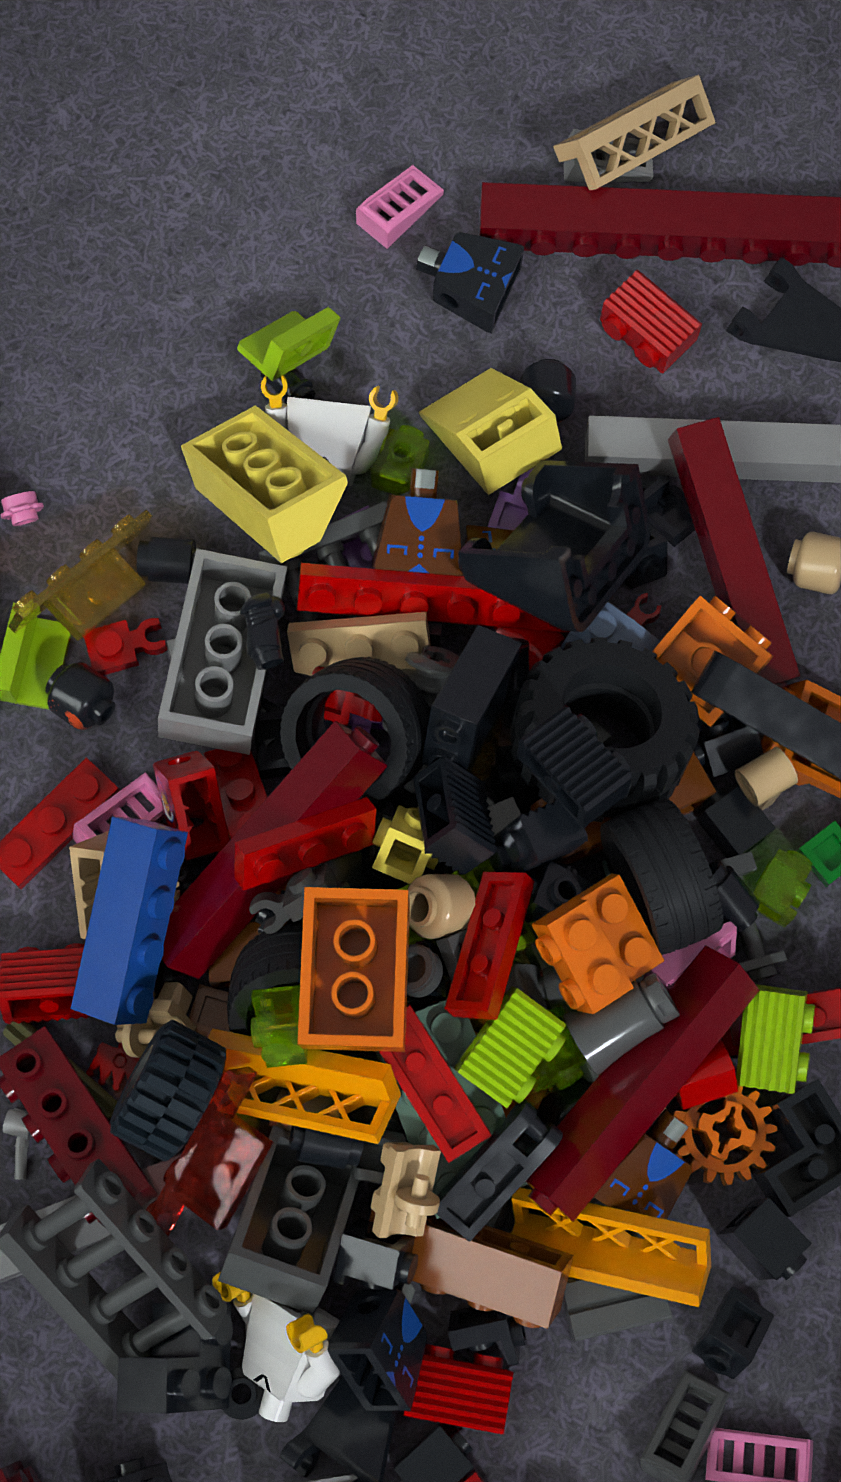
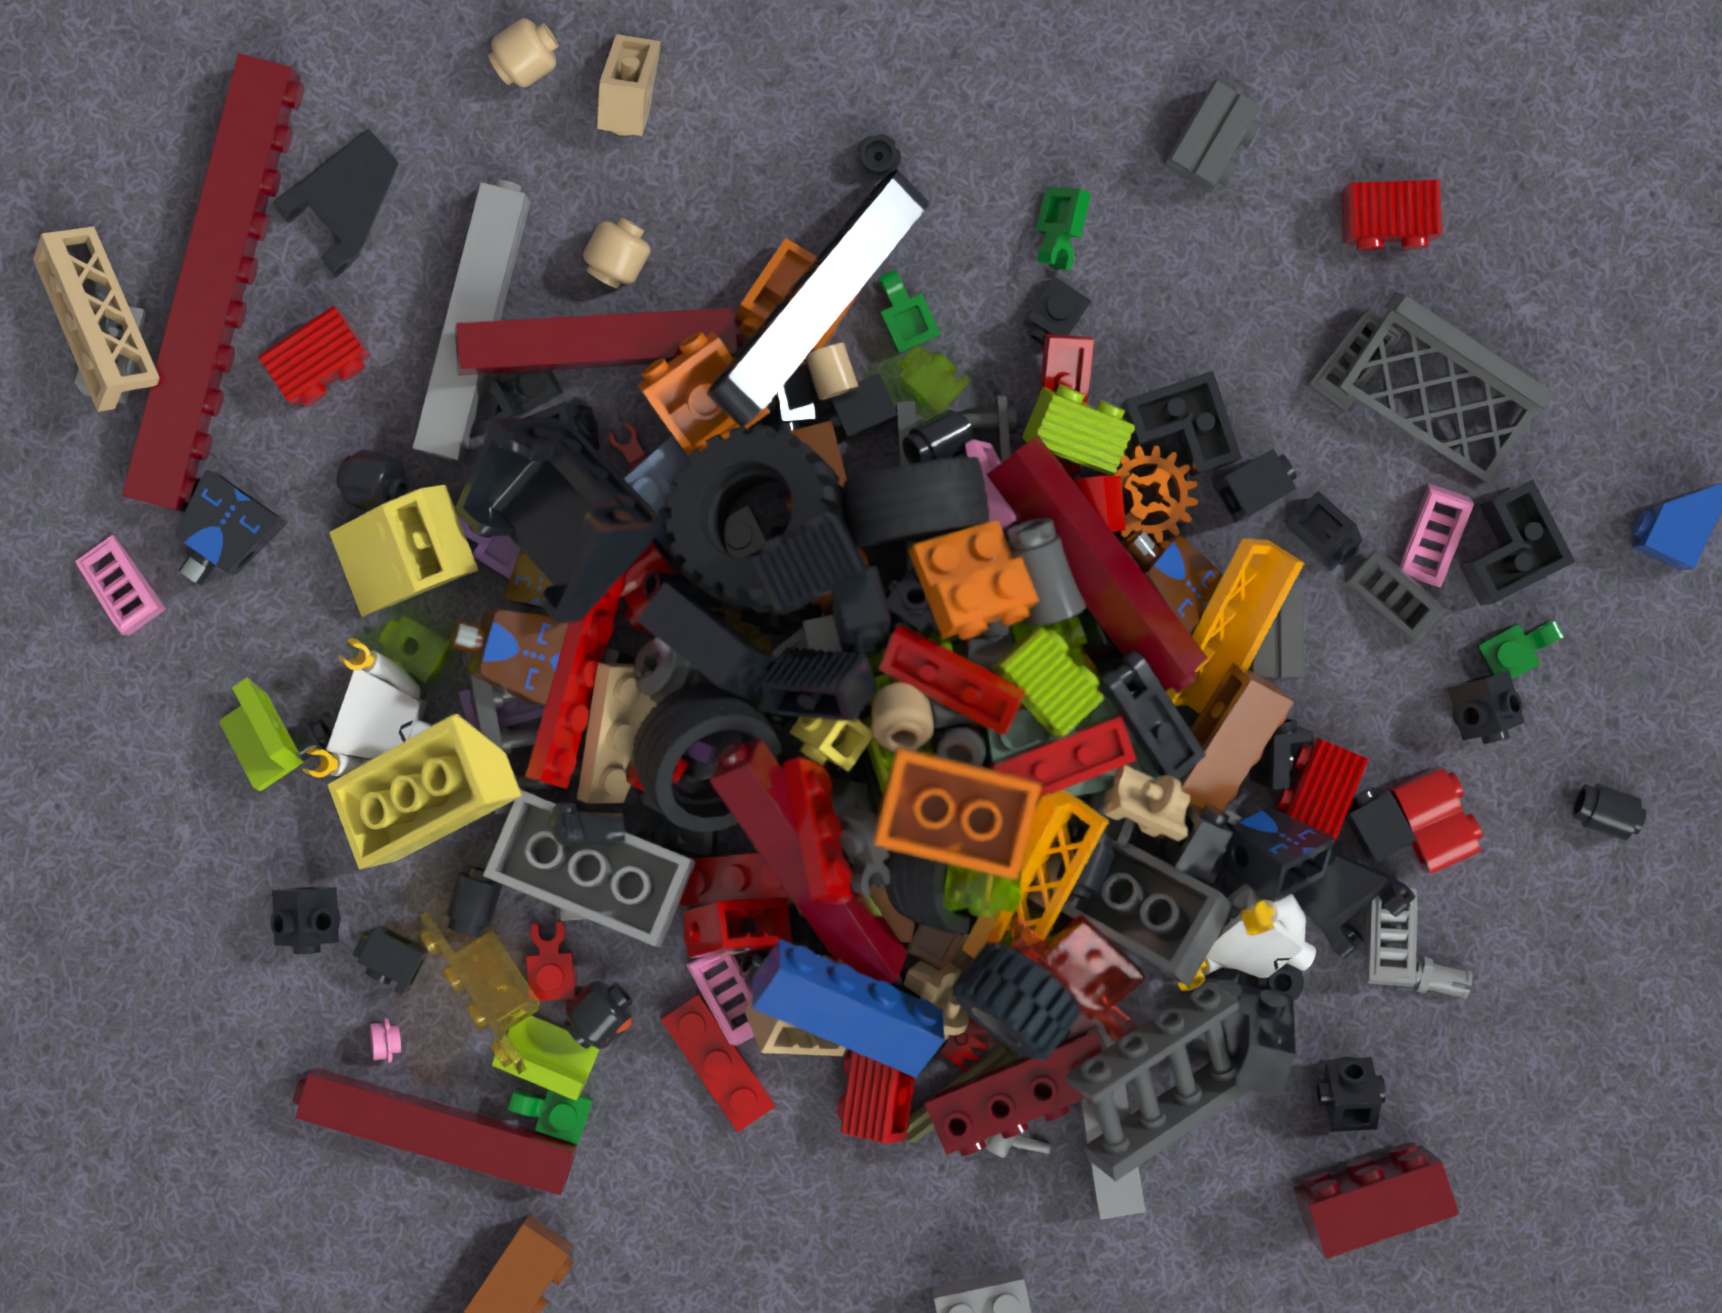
camera: 80 degrees left, 15 degrees up
(101, 497) = (390, 957): none -> black brick
(124, 413) = (305, 918): none -> black brick

